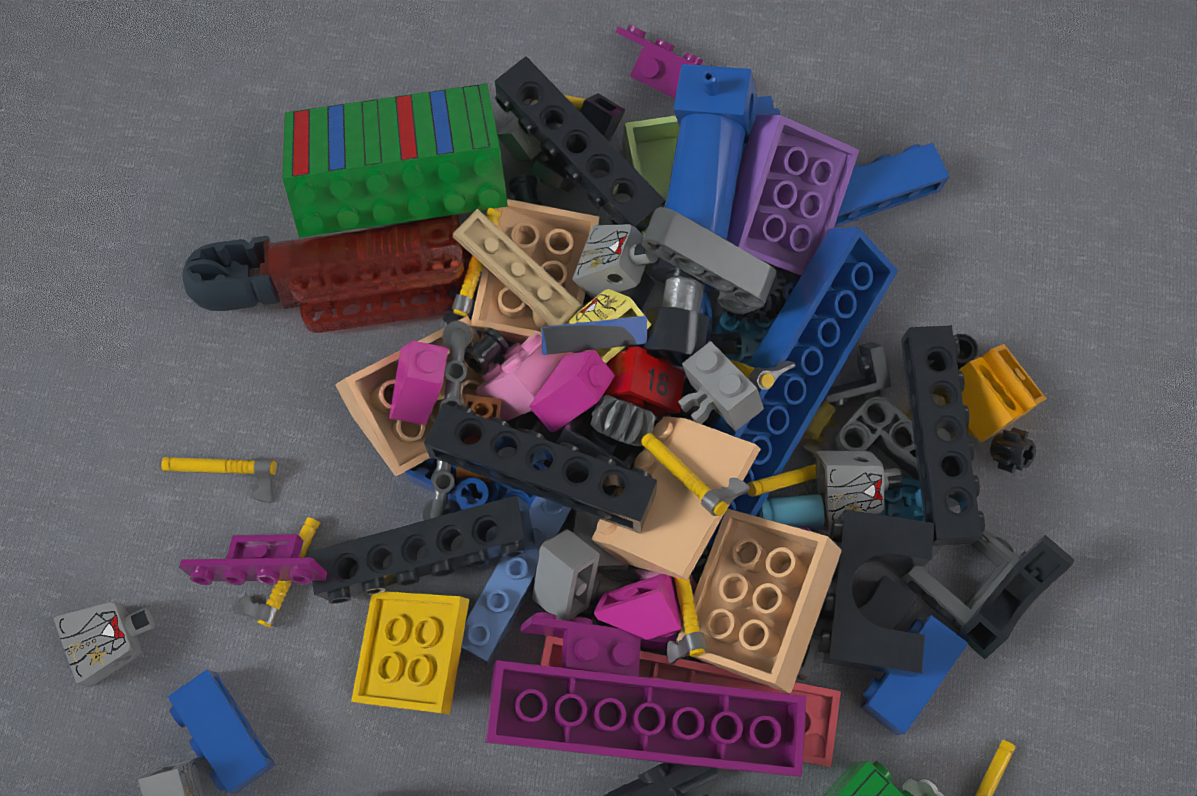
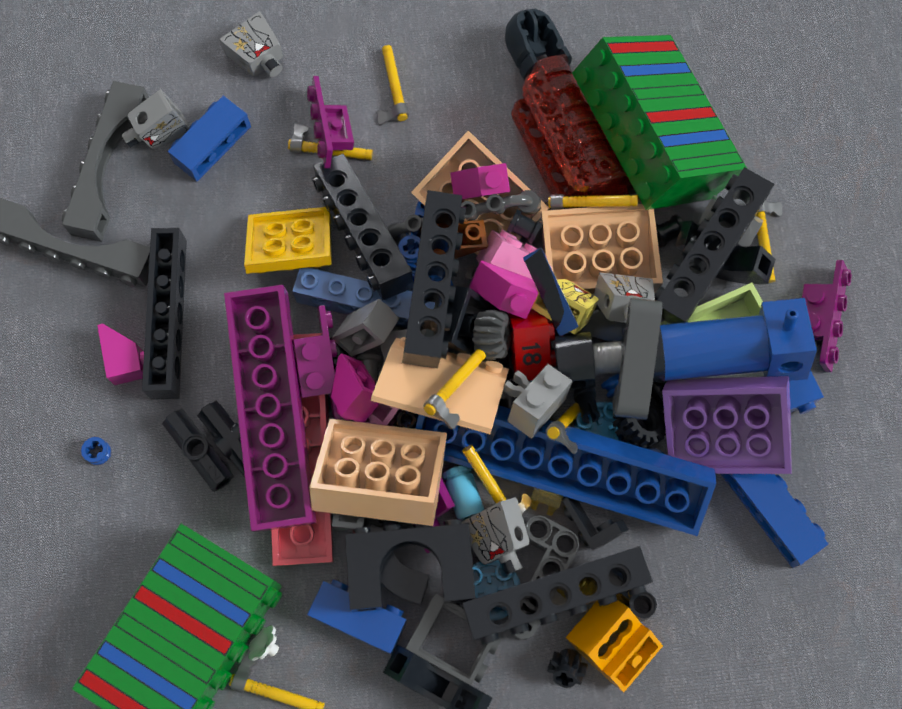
camera: 80 degrees right, 0 degrees up
(516, 269) = (593, 229): tan tile -> none
(694, 641) = (334, 427): piece -> none

